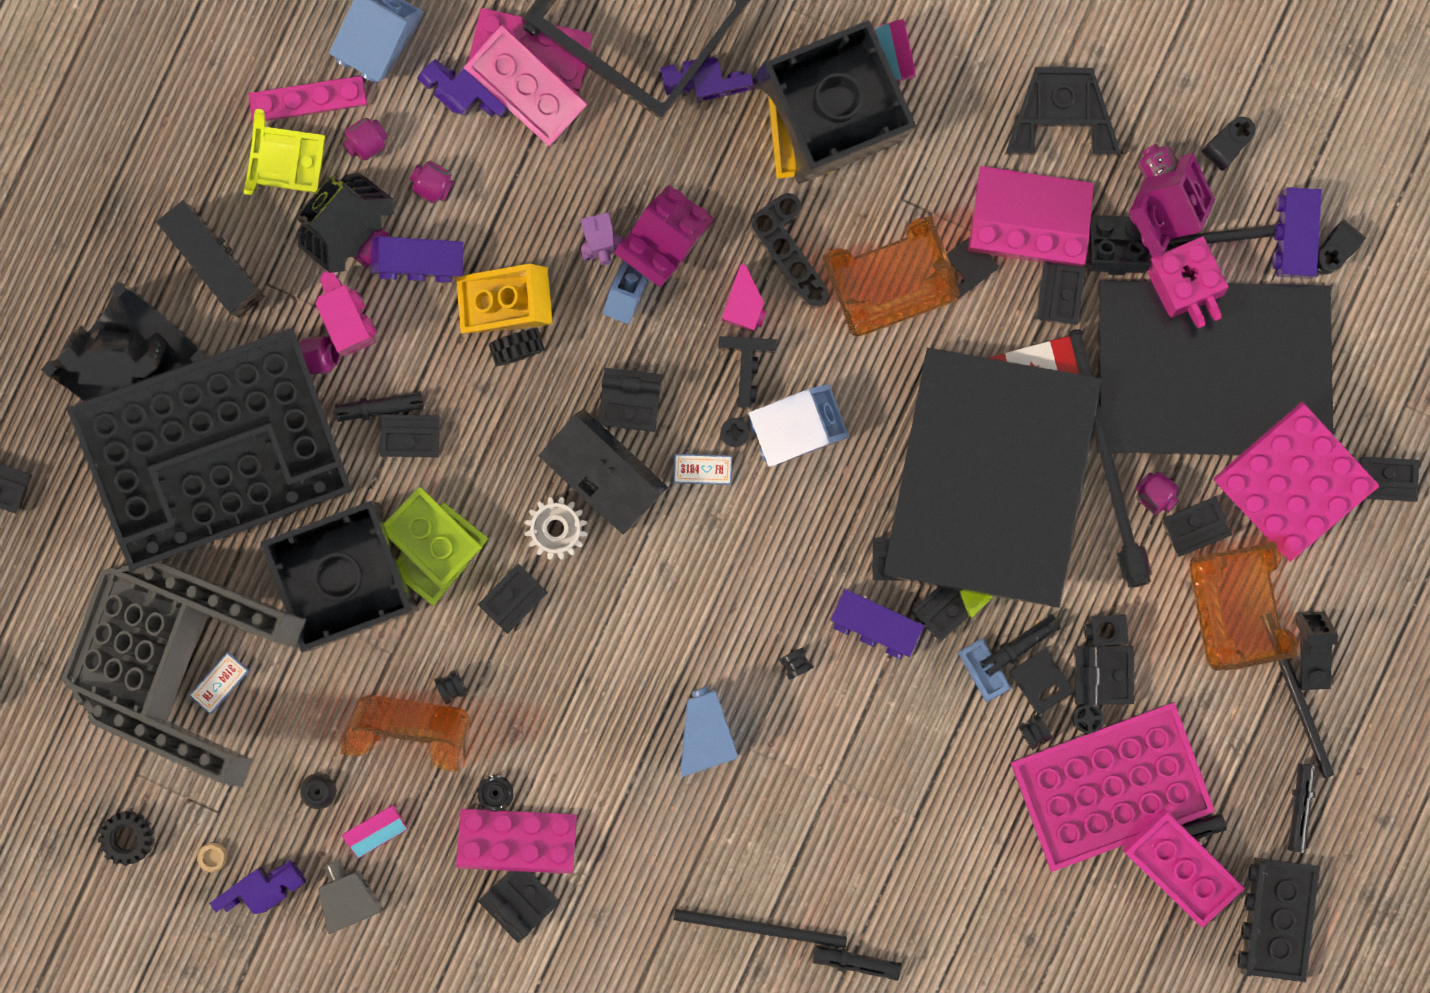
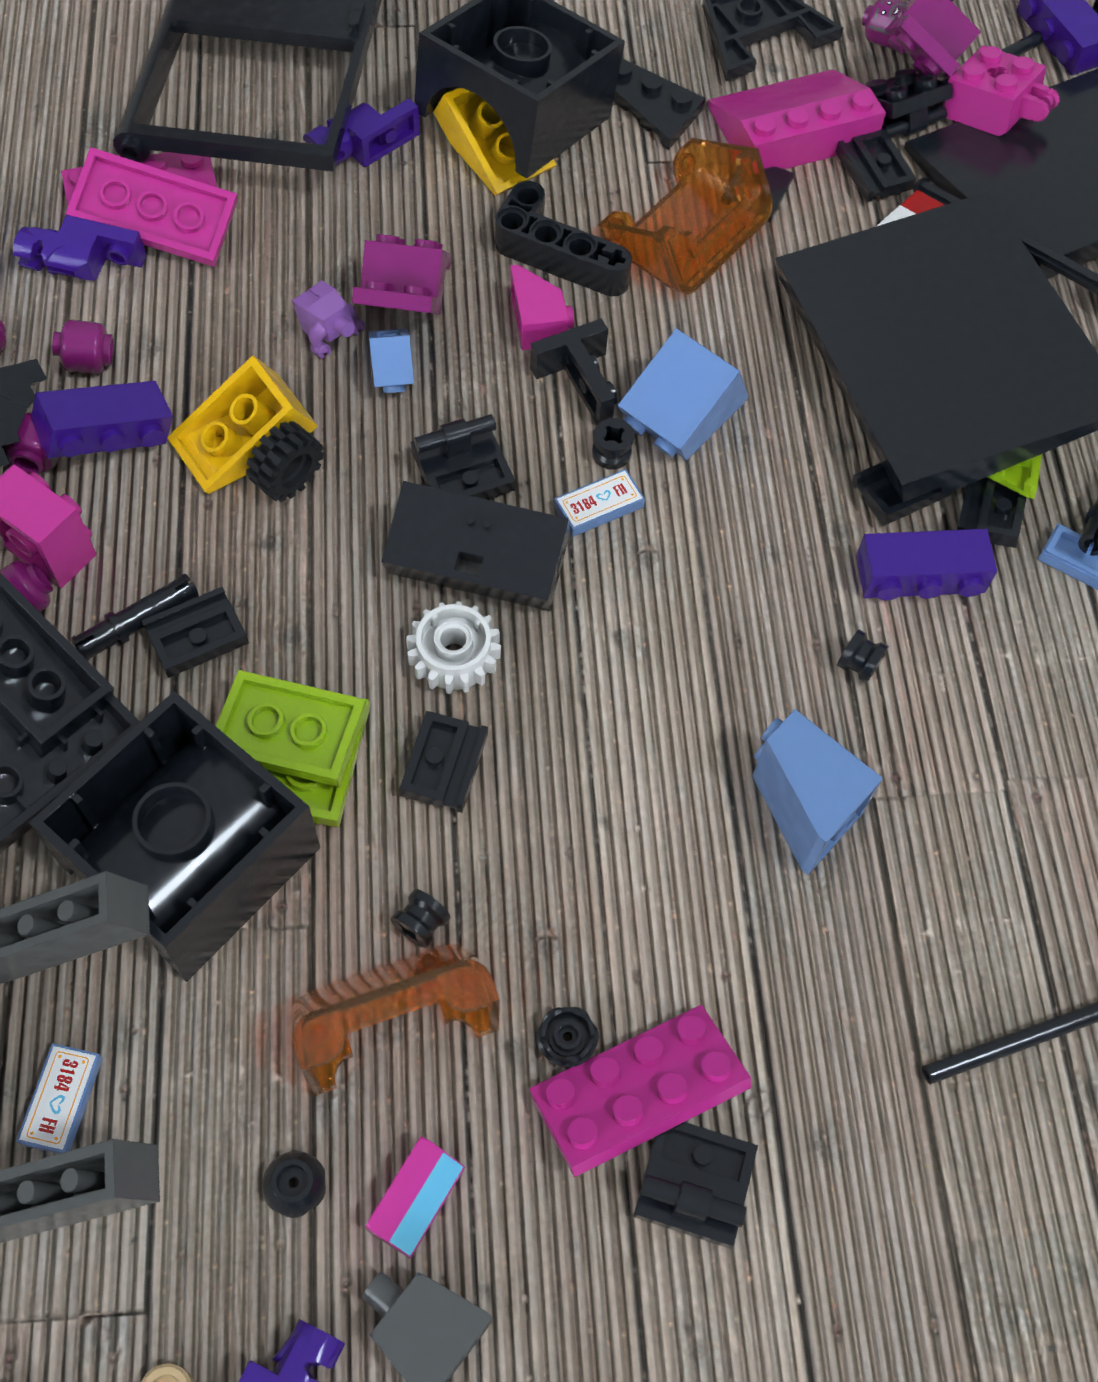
camera: 35 degrees left, 25 degrees down
(938, 145) = (657, 102): none -> black wing

